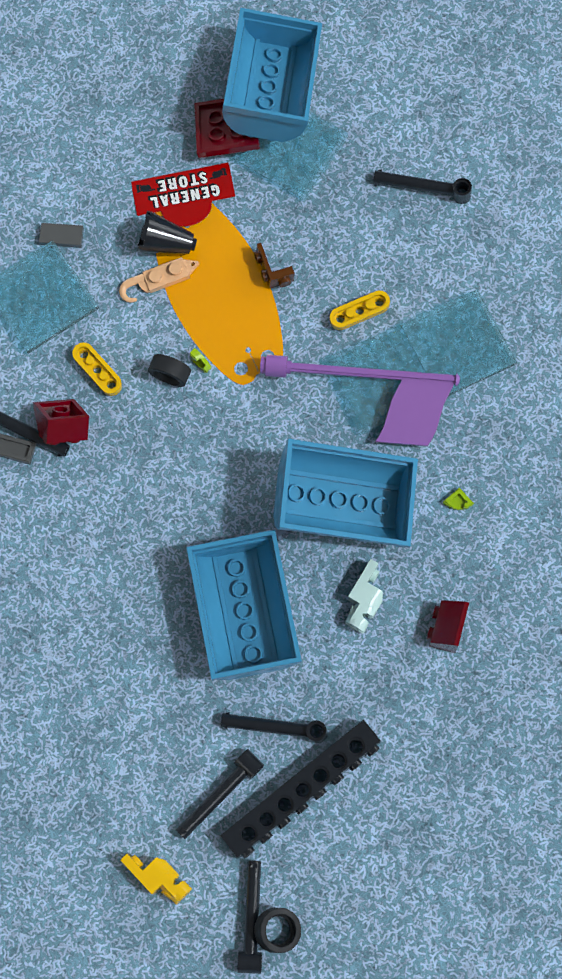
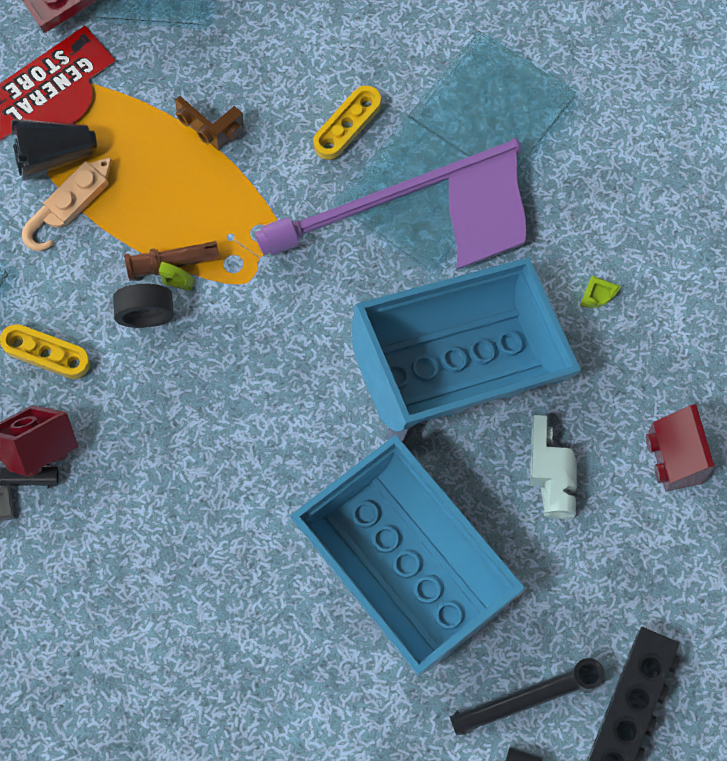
camera: 30 degrees left, 5 degrees down
(188, 343) = (150, 262): none -> copper pin

